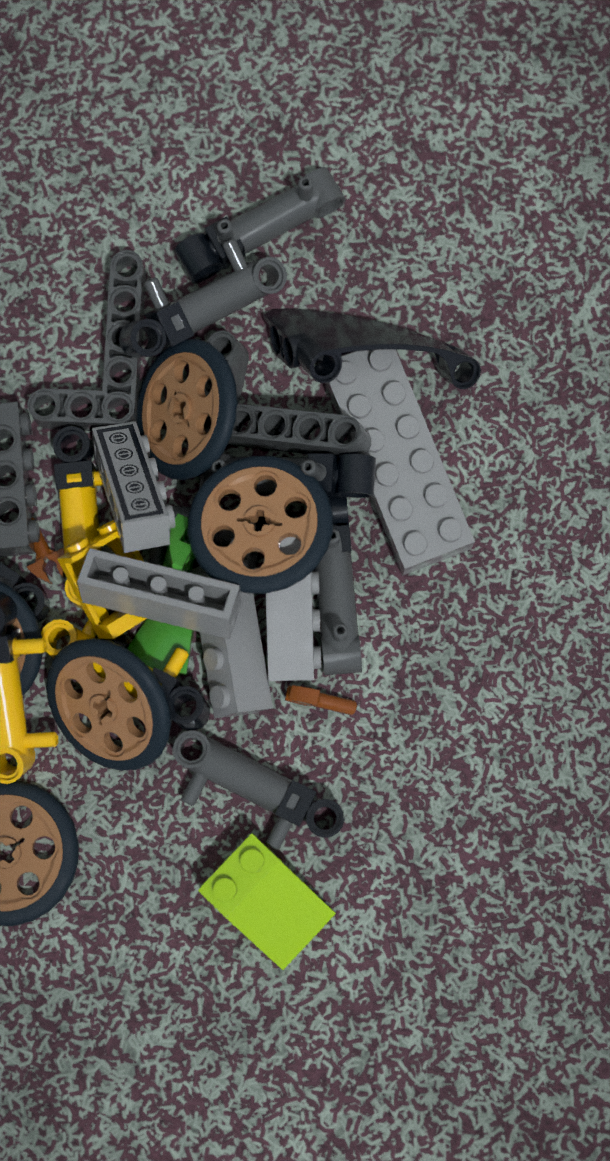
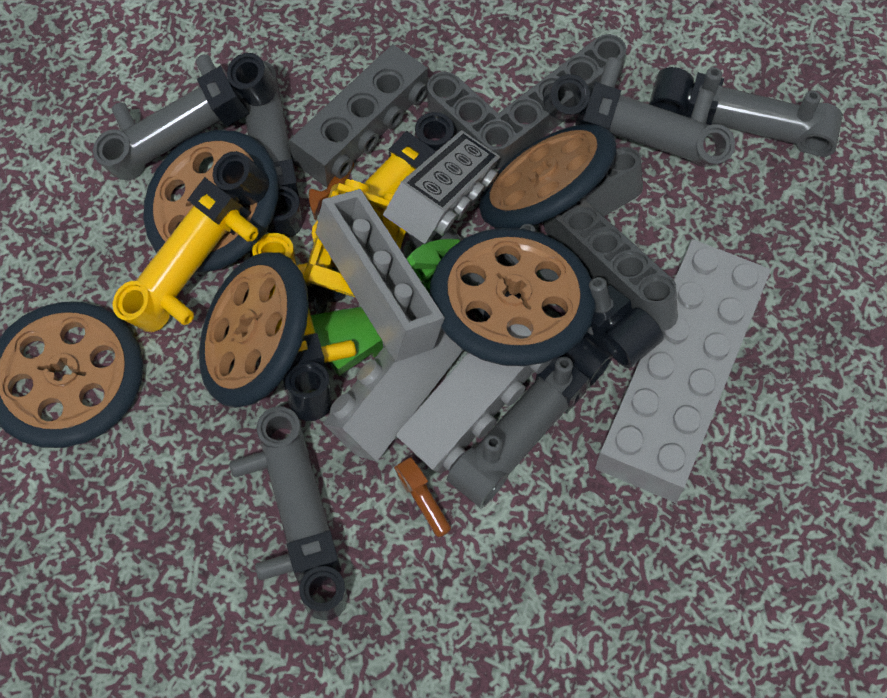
camera: 45 degrees right, 15 degrees down
(266, 901) = (205, 611): lime slope -> none
(320, 337) = (694, 216): black panel -> none

